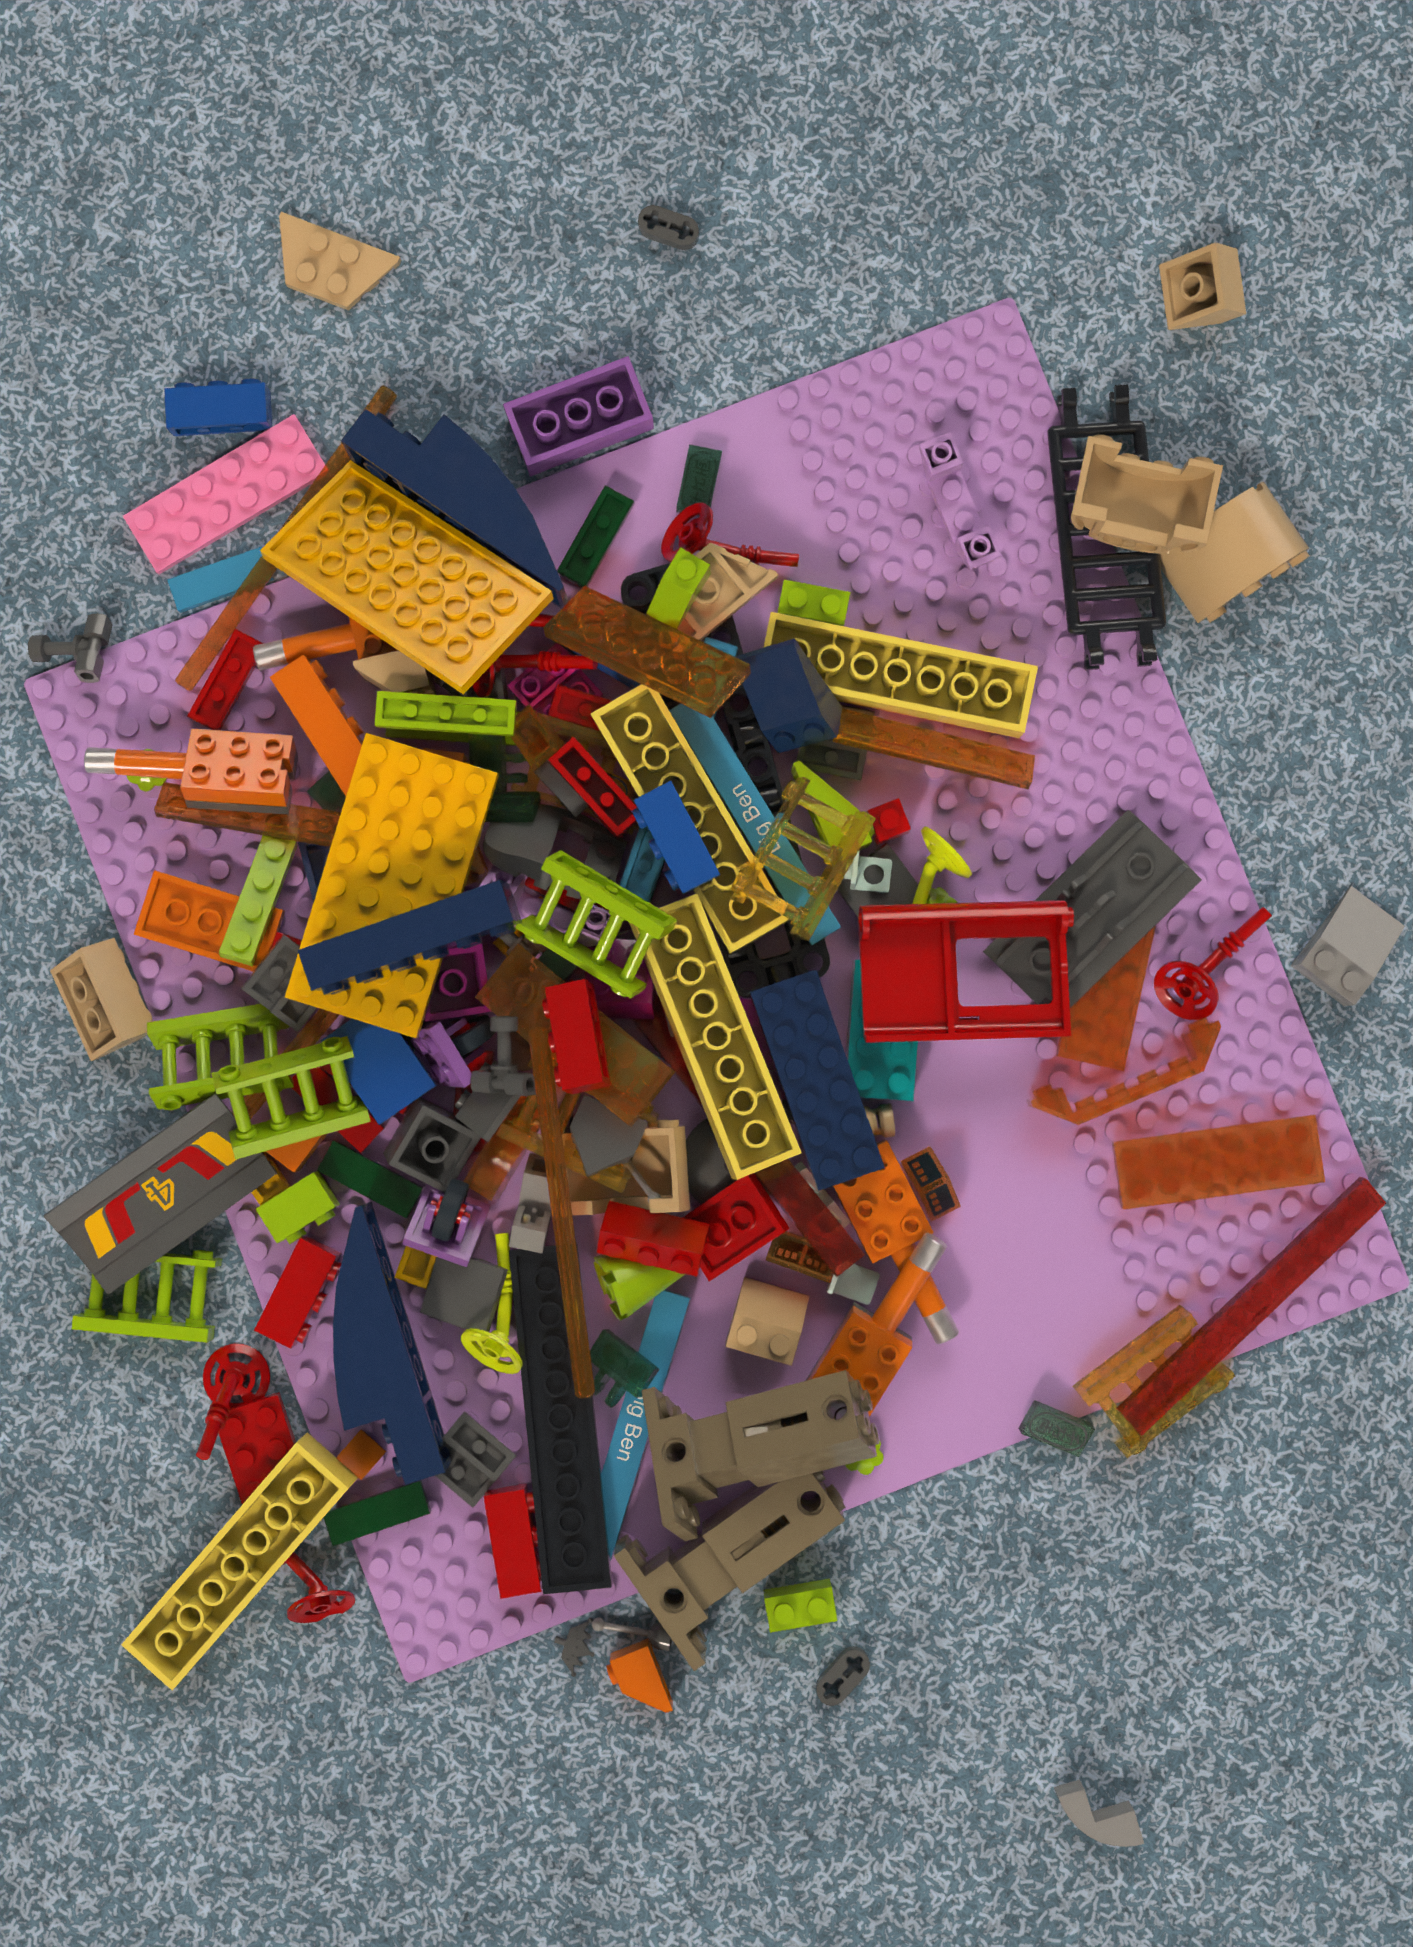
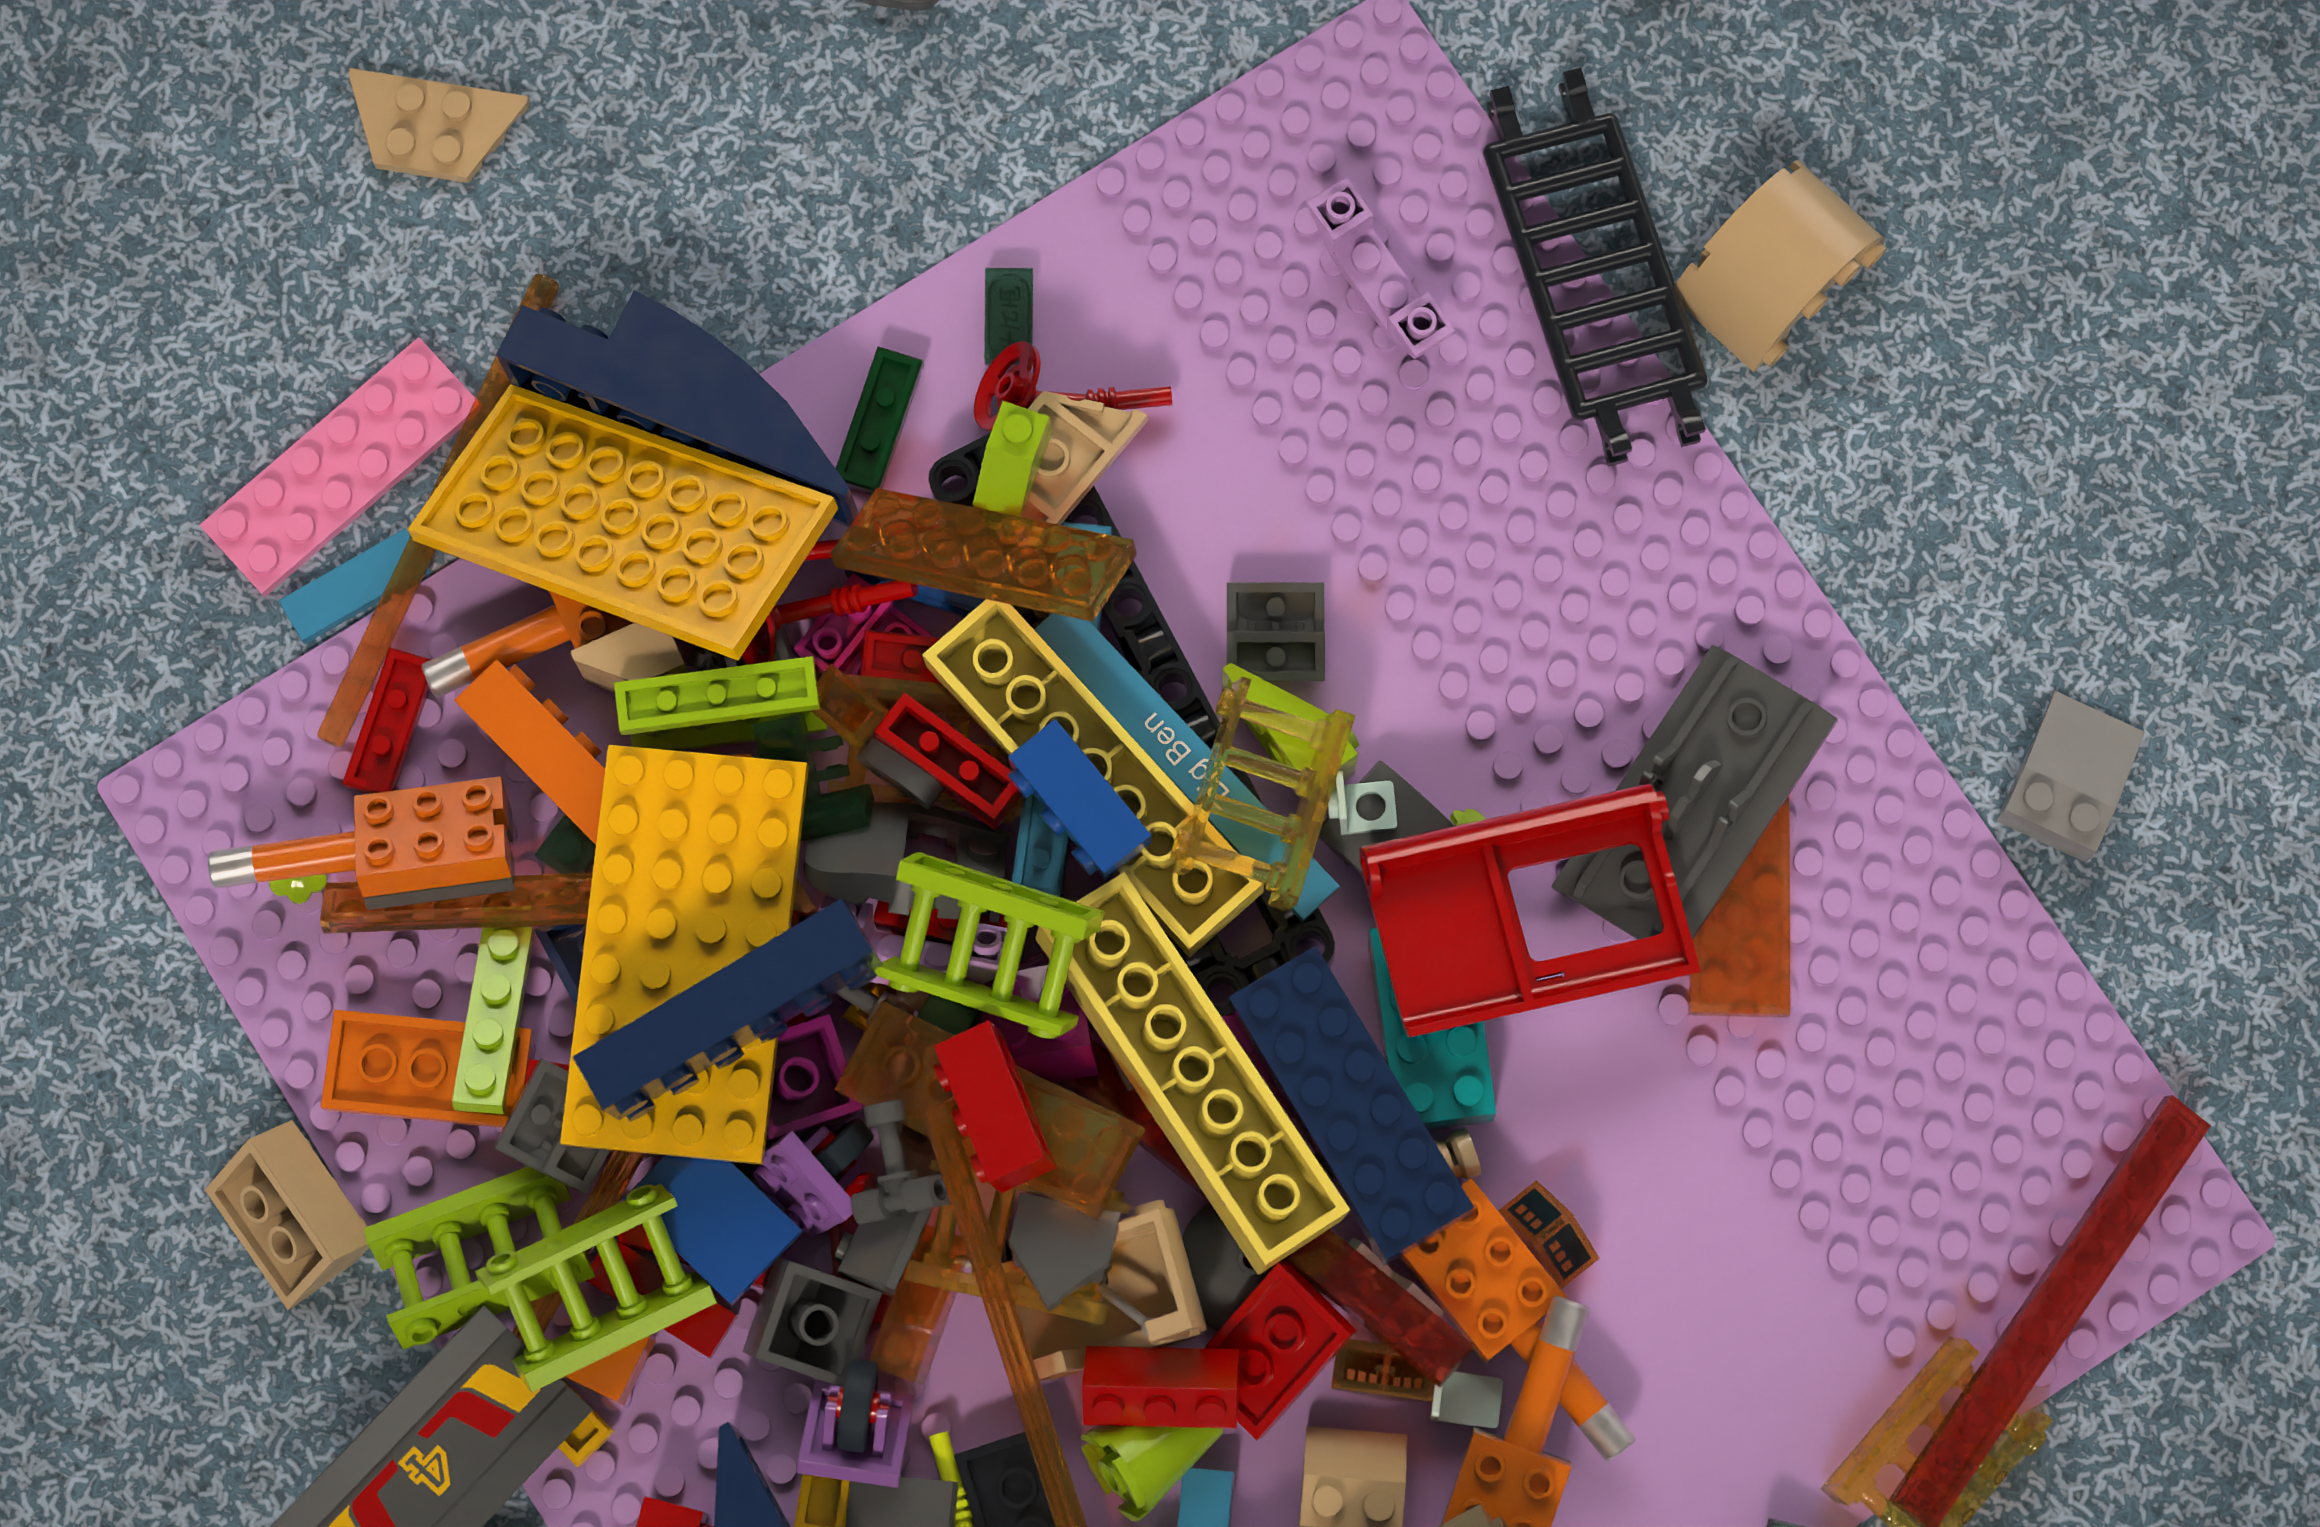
camera: 10 degrees left, 10 degrees down
(83, 647) = (177, 717): dark grey bar -> none
(218, 408) = (309, 350): blue brick -> none
(298, 1207) = (634, 1456): lime brick -> none
(370, 1179) = (730, 1394): dark green tile -> none
(534, 1208) = (979, 1382): light grey brick -> none
(579, 416) = (822, 260): medium lavender brick -> none
(790, 697) = (1199, 579): dark blue slope -> none
(814, 602) = (1205, 452): lime brick -> none
(889, 821) = (1378, 729): red brick -> none
(913, 675) = (1343, 523): light yellow brick -> none
(935, 749) = (1418, 614): clear orange plate -> none
(942, 857) = (1462, 760): neon yellow dish -> none
(1144, 502) = (1635, 219): tan cylinder -> none
(1194, 975) = (1861, 865): red dish -> none
(1199, 1044) = (1703, 1081): clear orange slope -> none
(1218, 1161) = (1955, 1116): clear orange plate -> none

